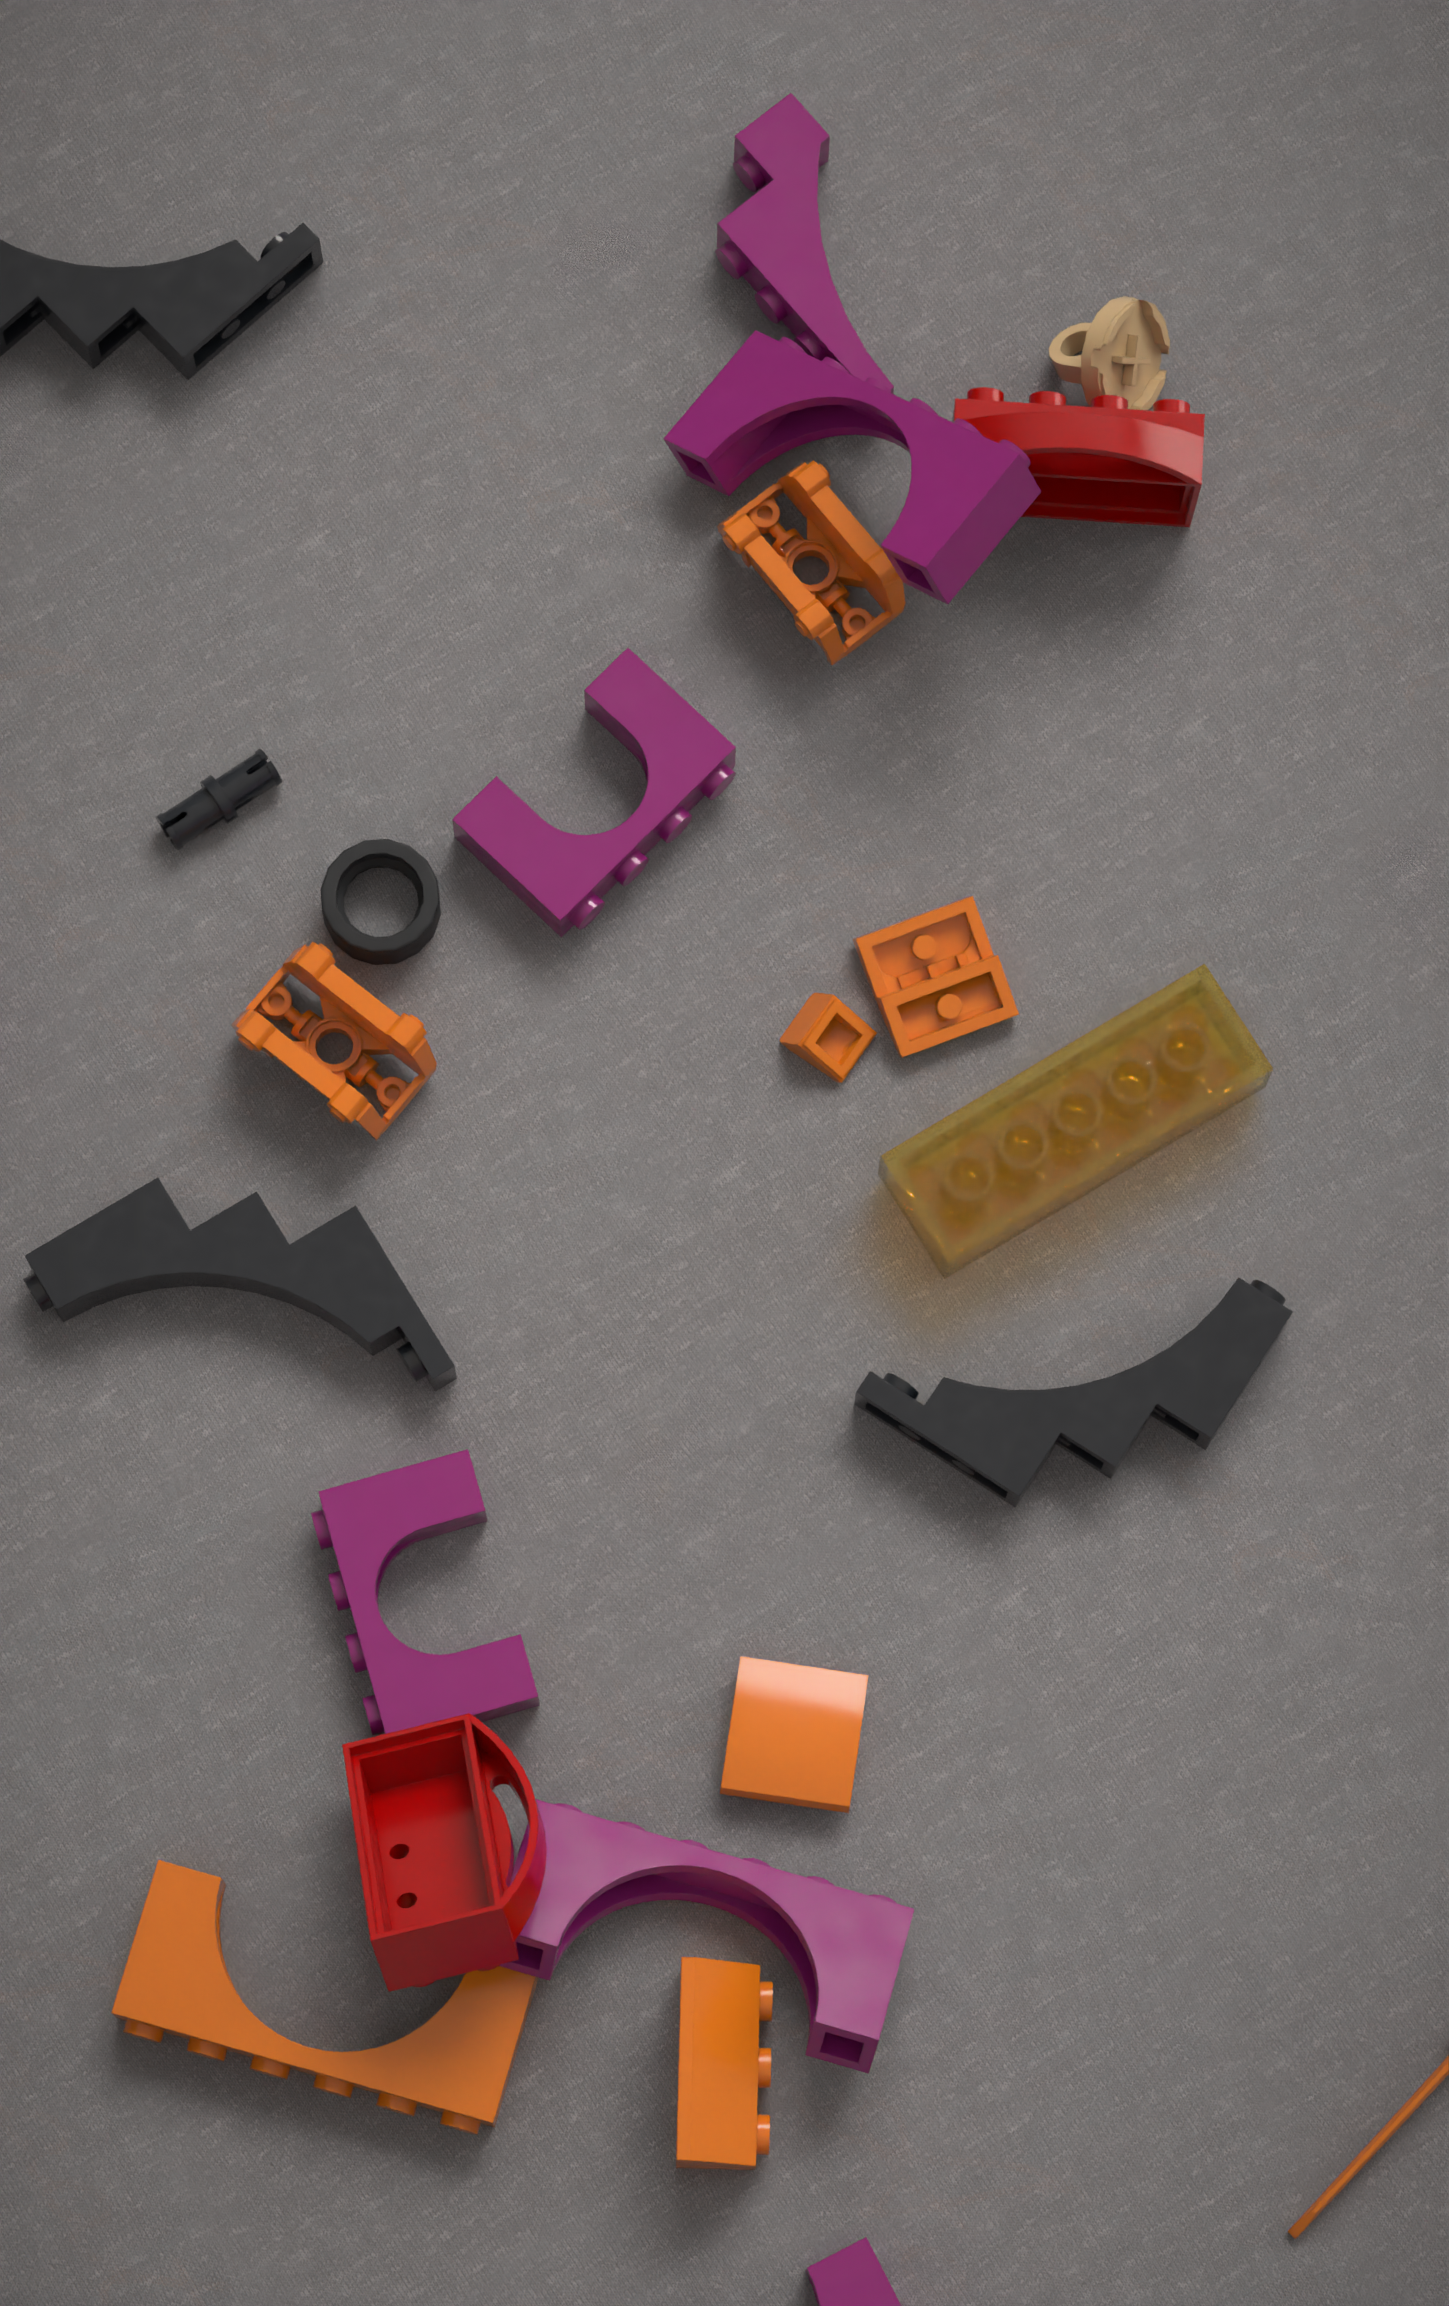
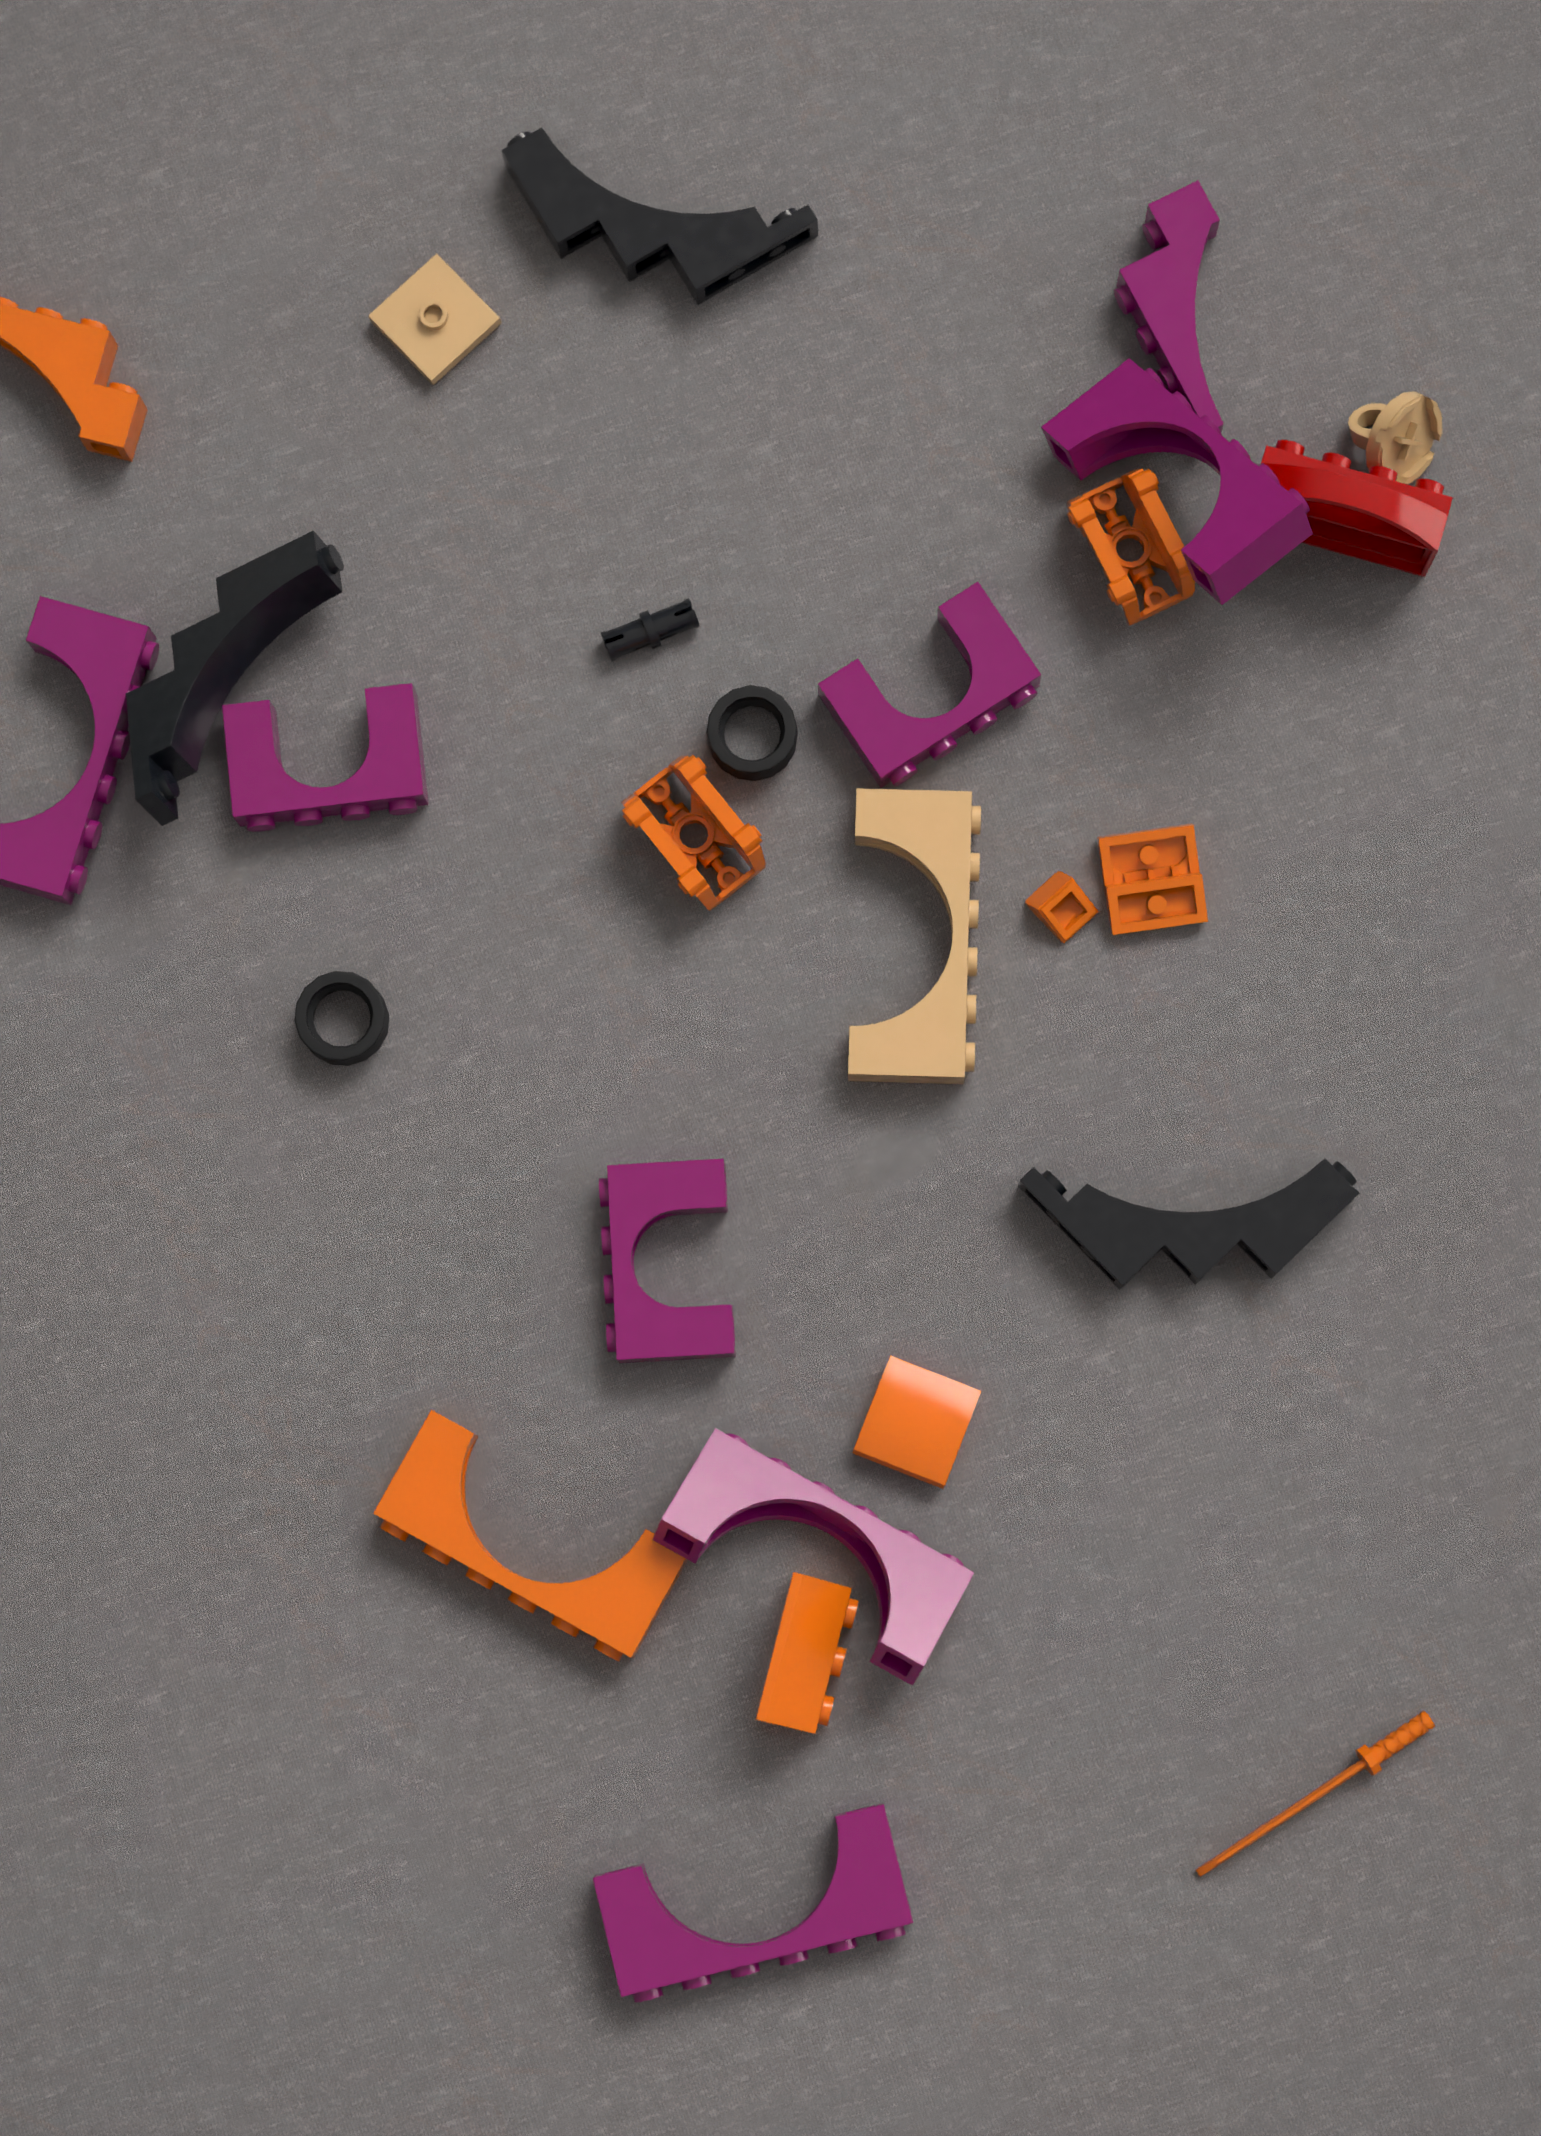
camera: 25 degrees right, 5 degrees up
(328, 1272) = (652, 1002): black arch -> none
(441, 1849) = (635, 1452): red piece -> none
(647, 982) = (935, 836): none -> tan arch
(1074, 1121) = (1230, 1012): clear yellow brick -> none

